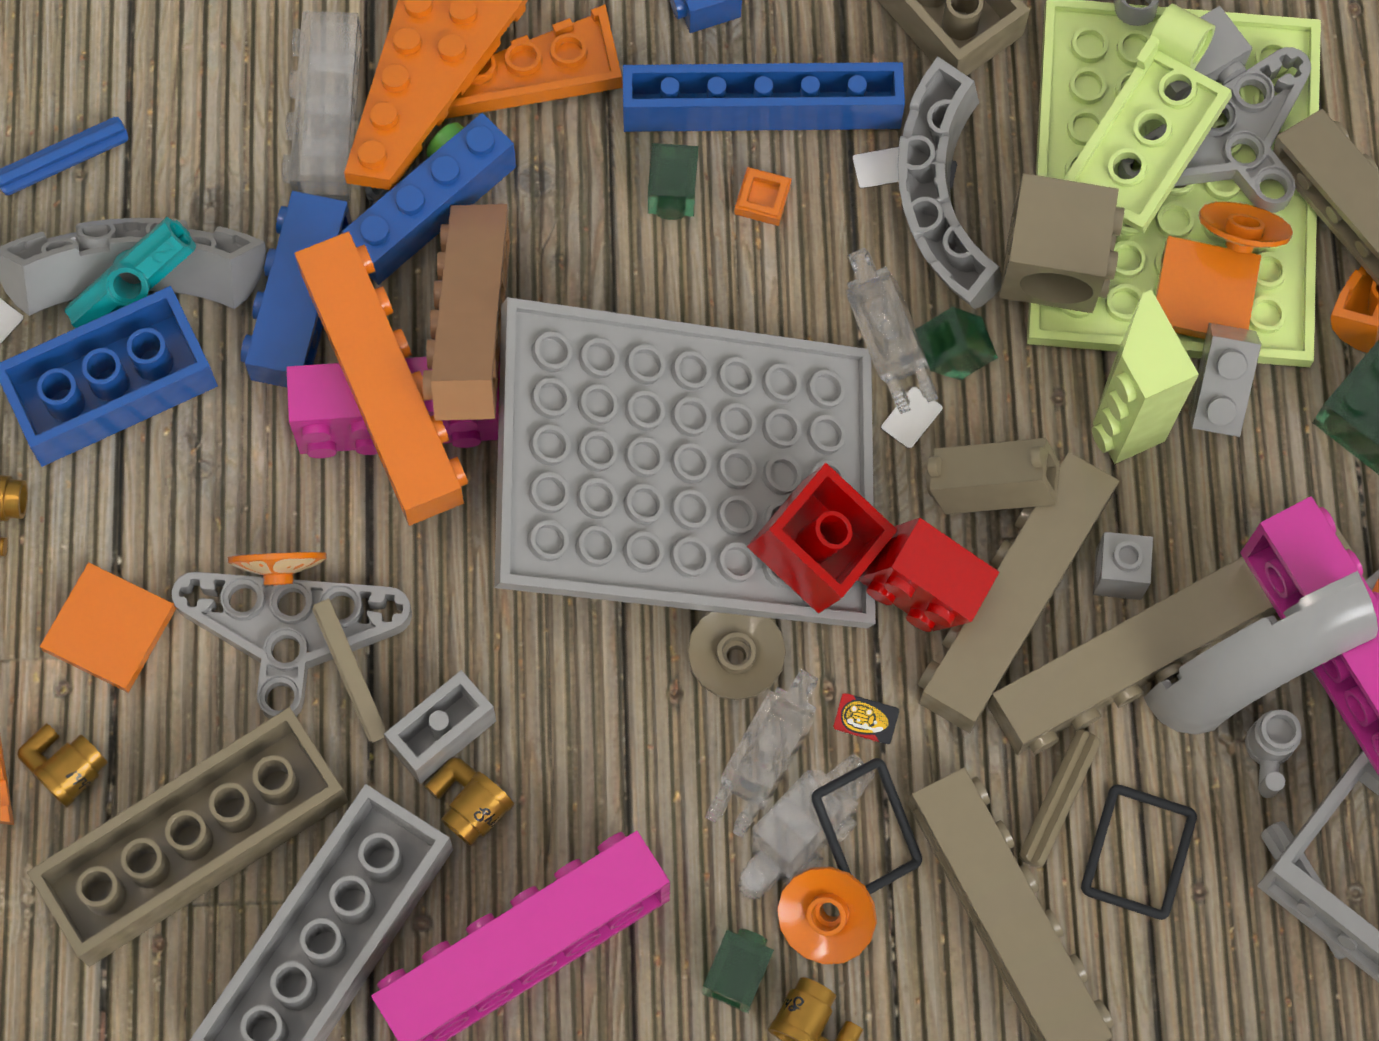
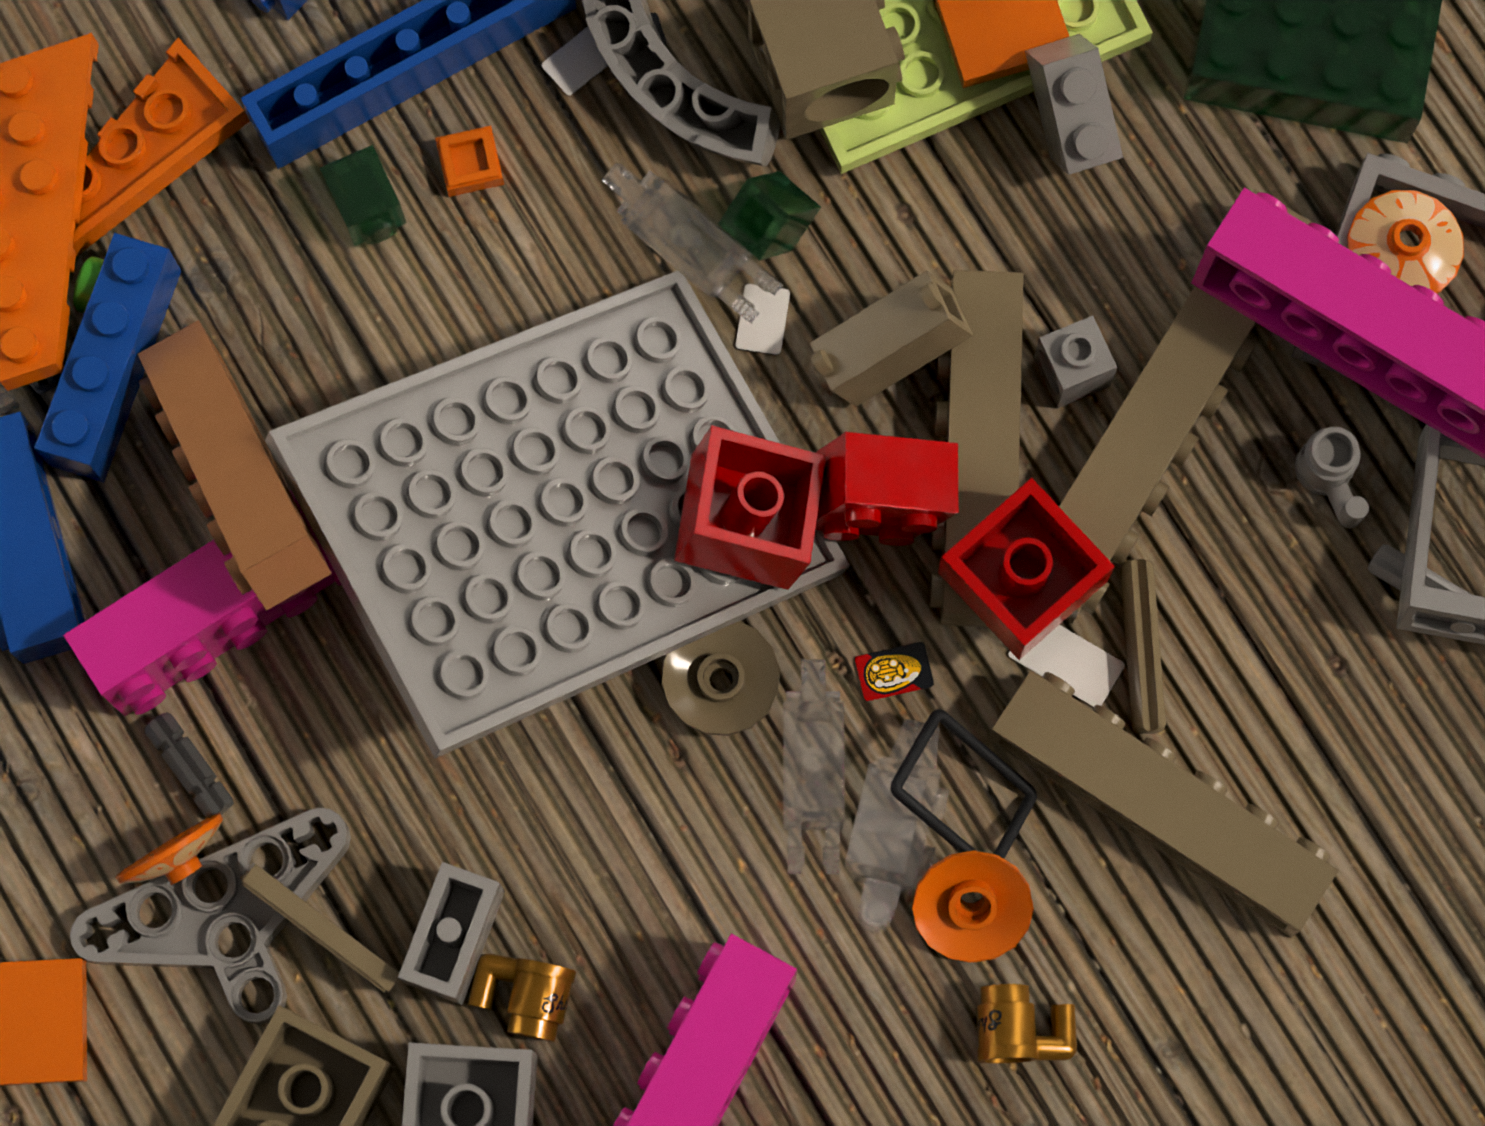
camera: 25 degrees left, 5 degrees up
(324, 510) = (188, 765): none -> dark grey axle
(380, 379) = (175, 592): orange brick -> none
(738, 969) = (912, 1015): clear green brick -> none
(999, 688) = (1025, 568): none -> red brick
(1003, 781) = (1075, 661): none -> white sticker
(1144, 385) = (995, 155): yellowish green slope -> none
(1178, 863) = (1300, 645): black piece -> none
(1265, 657) = (1287, 384): light grey brick -> none

